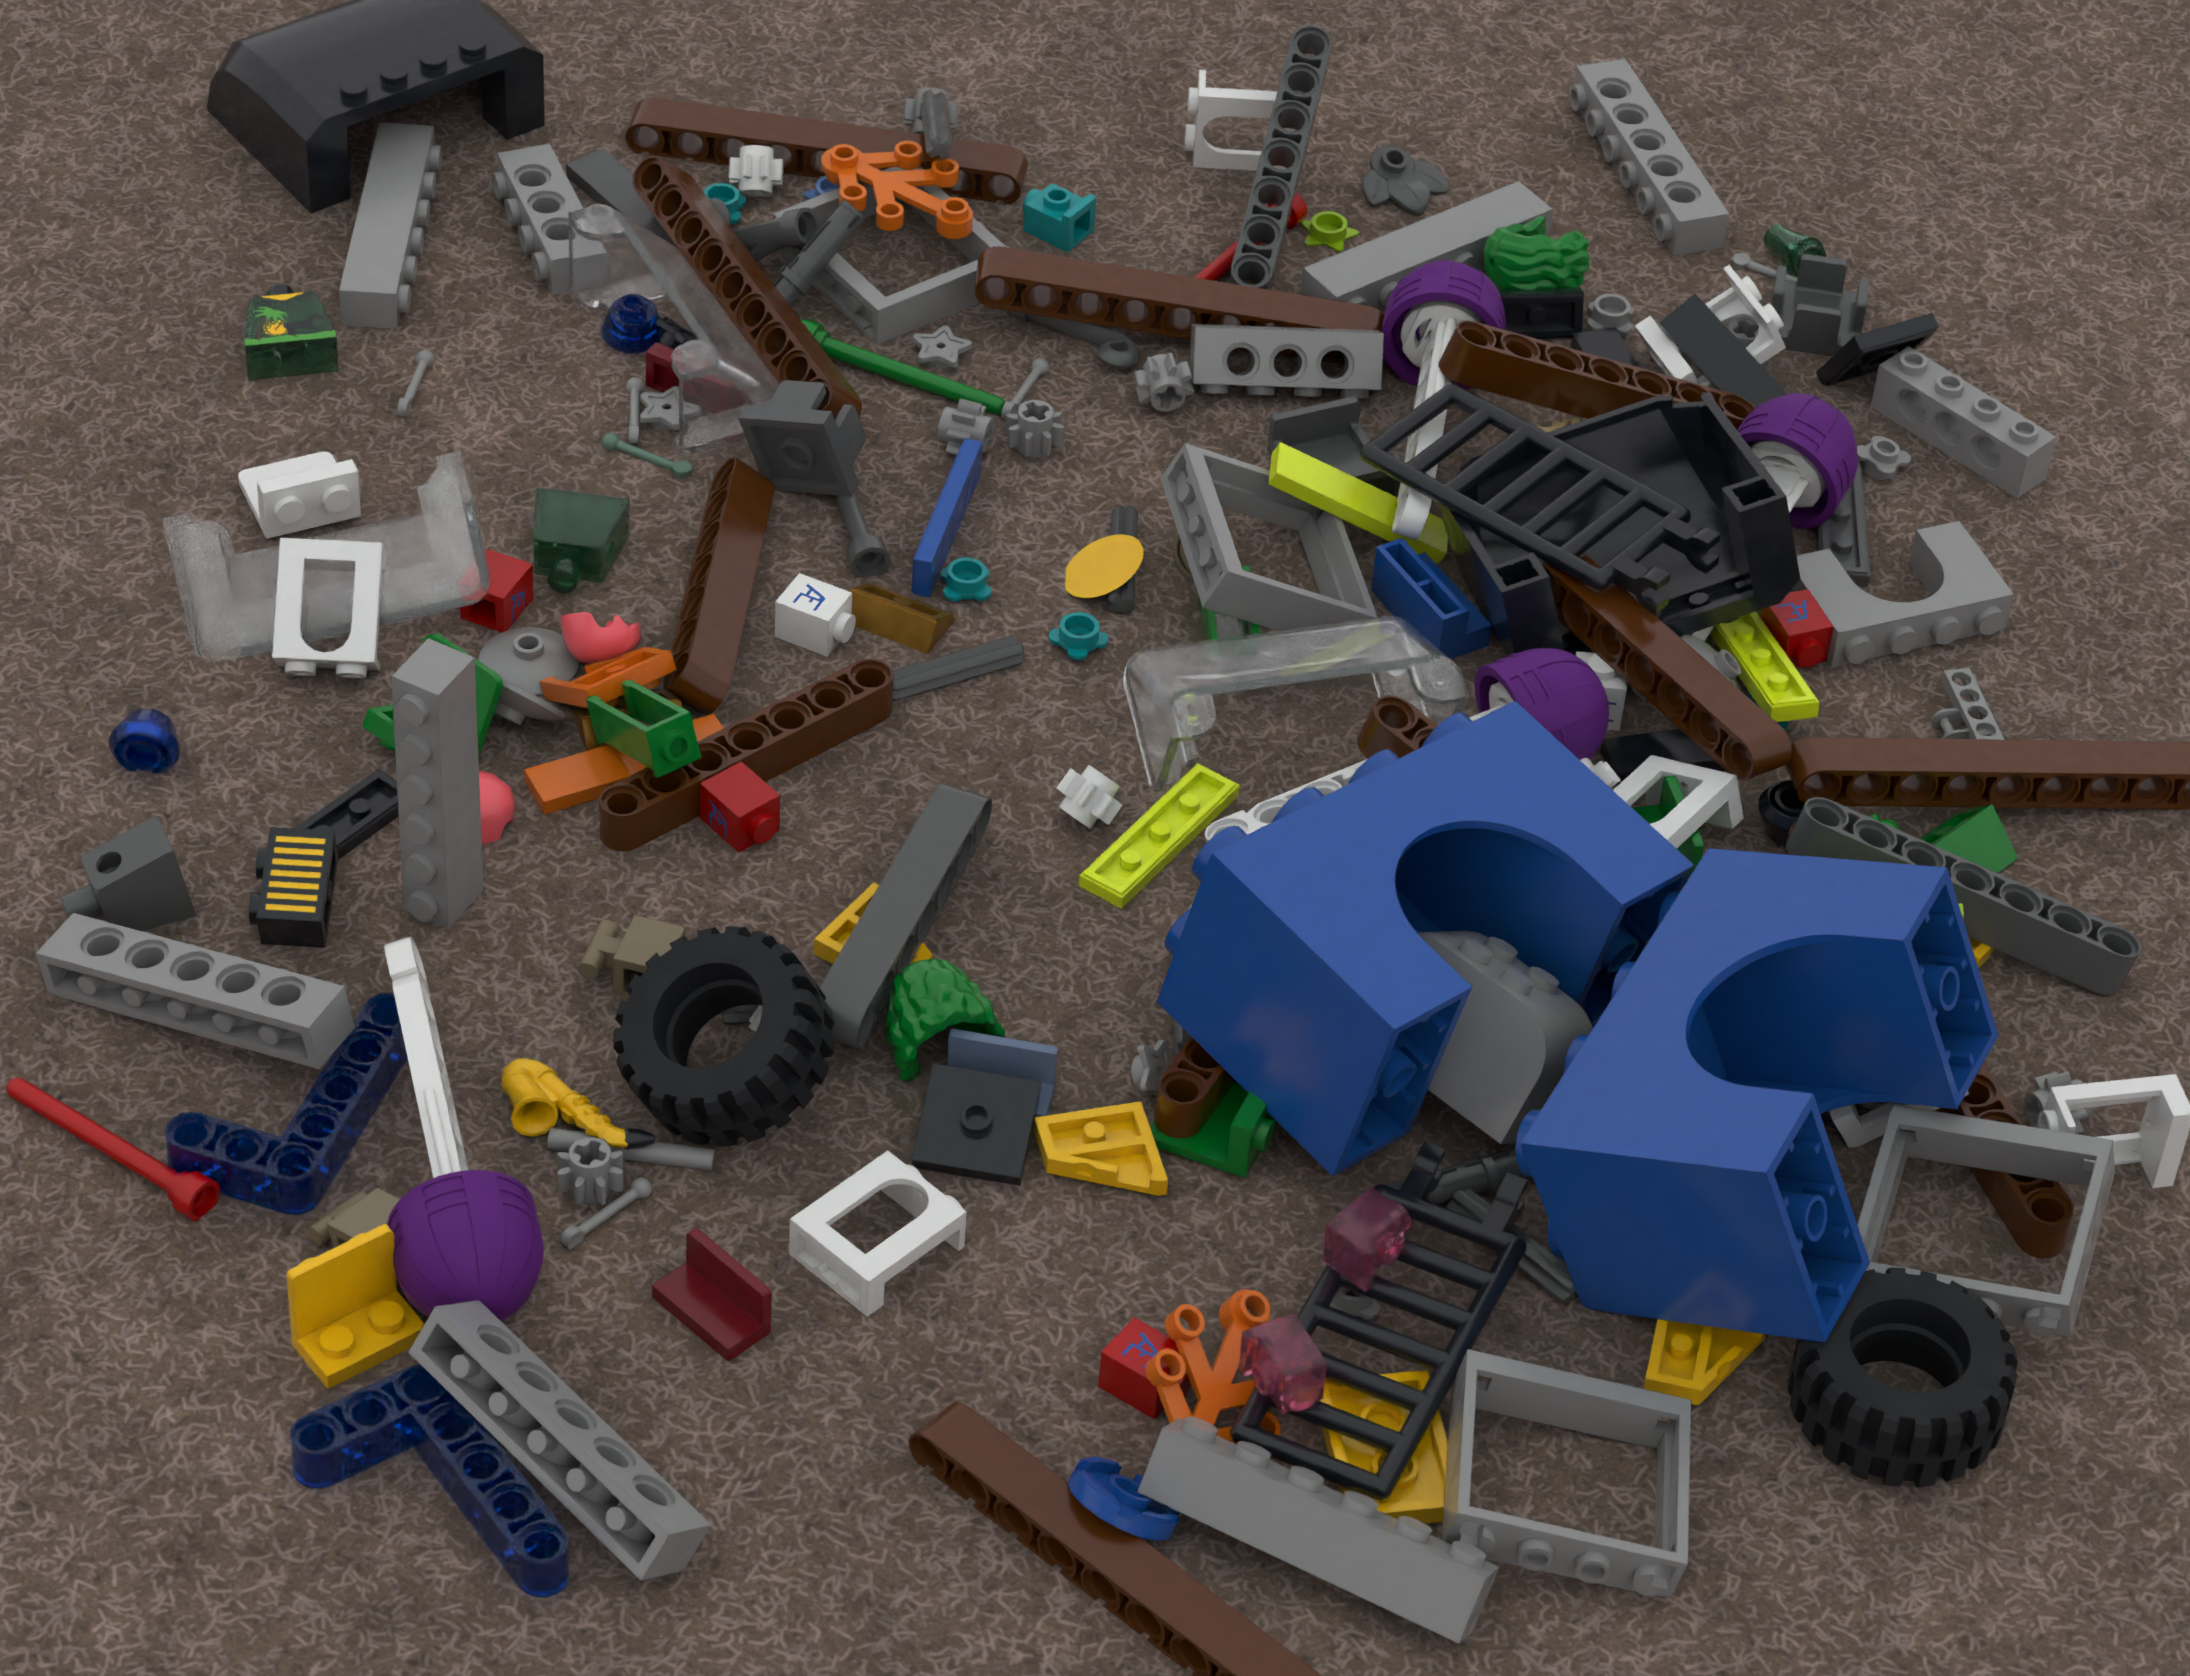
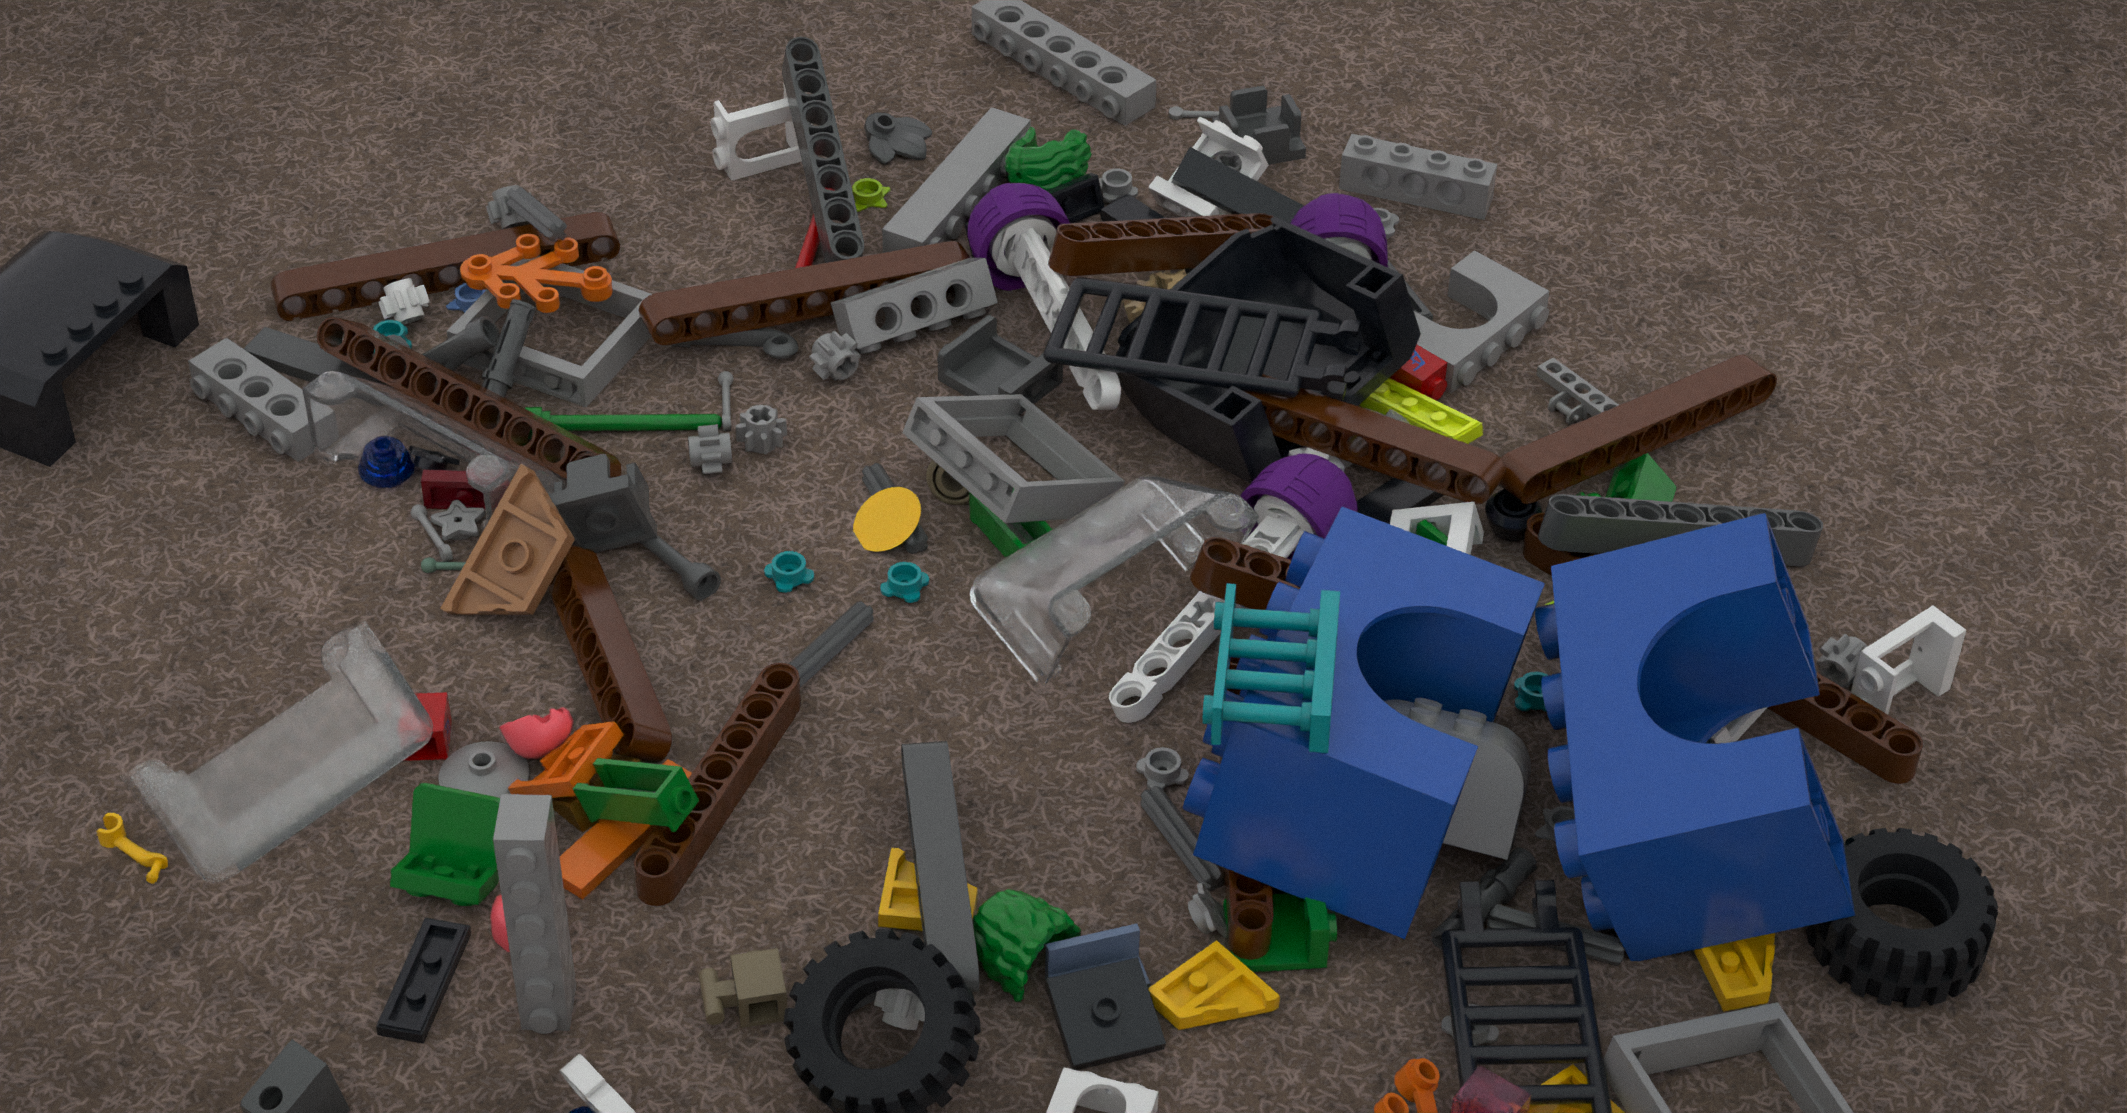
camera: 25 degrees left, 0 degrees up
(145, 584) = (116, 837): none -> yellow piece
(145, 741) = (214, 975): clear blue cone -> none
(288, 335) = (106, 576): clear green torso -> none
(295, 888) = (431, 1050): black brick -> none
(301, 493) = (204, 706): white bracket -> none
(361, 647) = (286, 840): white panel -> none
(389, 226) = (131, 455): light grey brick -> none
(424, 360) = (229, 555): light grey hinge -> none
(577, 536) = (458, 655): clear green torso -> none
(685, 452) = (514, 554): none -> medium nougat wing
(740, 807) = (744, 828): red brick -> none
(814, 615) = (695, 646): white brick -> none
(899, 617) = (753, 622): pearl gold slope -> none
(940, 348) = (644, 399): light grey plate -> none
(946, 518) = (743, 527): blue tile -> none
(1059, 216) = (662, 254): teal brick -> none
(1089, 796) = (1007, 708): white gear -> none
(1159, 835) = (1073, 719): neon yellow tile -> none
(1318, 855) = (1314, 685): none -> teal fence
(1349, 499) = (1040, 396): neon yellow tile -> none
(1365, 1237) = (1479, 980): clear pink brick -> none
(1427, 599) = (1138, 451): blue piece -> none
(1790, 246) = (1209, 90): clear green cone -> none
(1870, 349) = (1327, 143): black plate -> none
(2002, 1149) = (1888, 704): light grey window -> none

